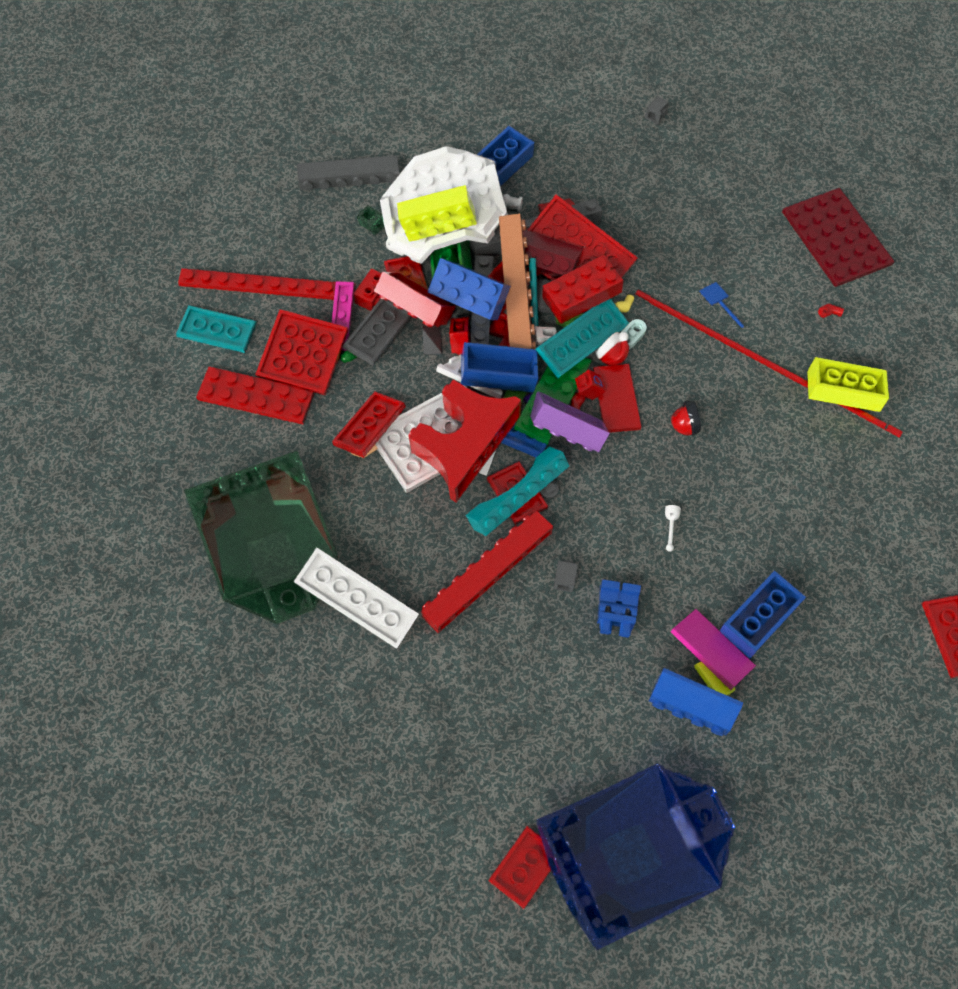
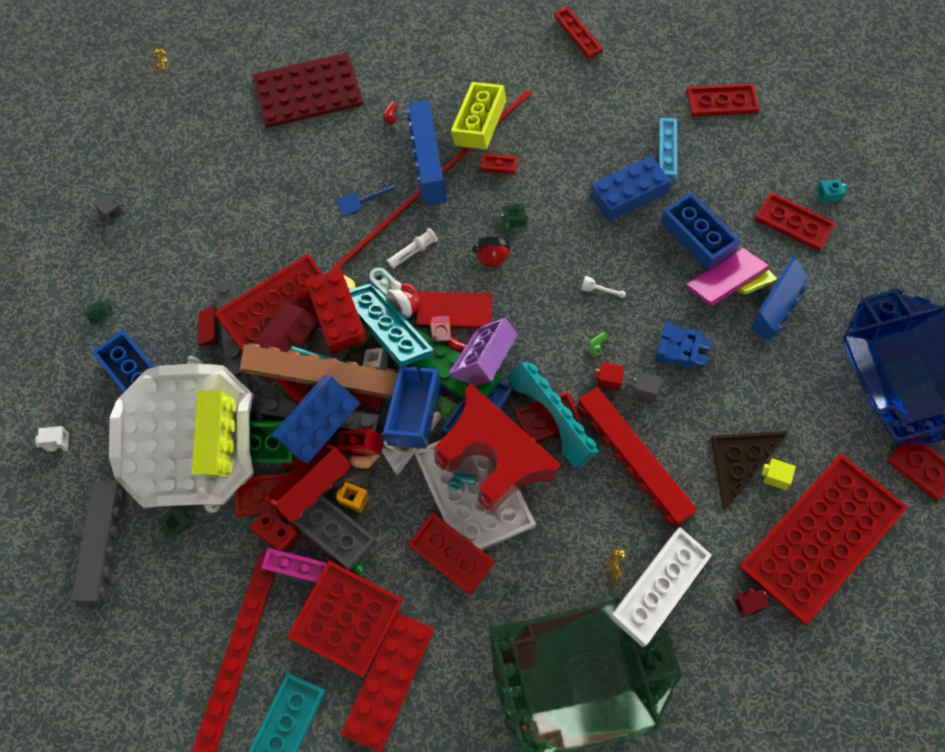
camera: 75 degrees left, 0 degrees up
(353, 686) = (751, 602): none -> dark red brick
(377, 562) = (614, 562): none -> clear yellow arm
(411, 341) = (348, 490): none -> light orange brick
(430, 758) = (822, 539): none -> red plate
(431, 124) = (52, 438): none -> white brick
(437, 419) = (459, 480): none -> teal arm
(446, 346) = (363, 462): none -> light nougat arm
(490, 708) = (778, 474): none -> neon yellow brick
(504, 673) = (739, 458): none -> dark brown tile
(553, 126) = (98, 311): none -> clear green brick
(570, 541) = (610, 376): none -> red brick
(605, 526) = (595, 344): none -> bright green arm
(681, 356) = (418, 244): none -> white pin
(740, 434) = (514, 216): none -> clear green brick
(785, 342) = (426, 153): none -> blue brick
(796, 415) = (499, 164): none -> red plate
(800, 541) = (630, 188): none -> blue brick
(807, 723) = (795, 221): none -> red tile
(840, 112) = (162, 57): none -> clear yellow arm
(851, 759) = (831, 191): none -> teal brick
(867, 578) = (668, 146): none -> medium azure plate

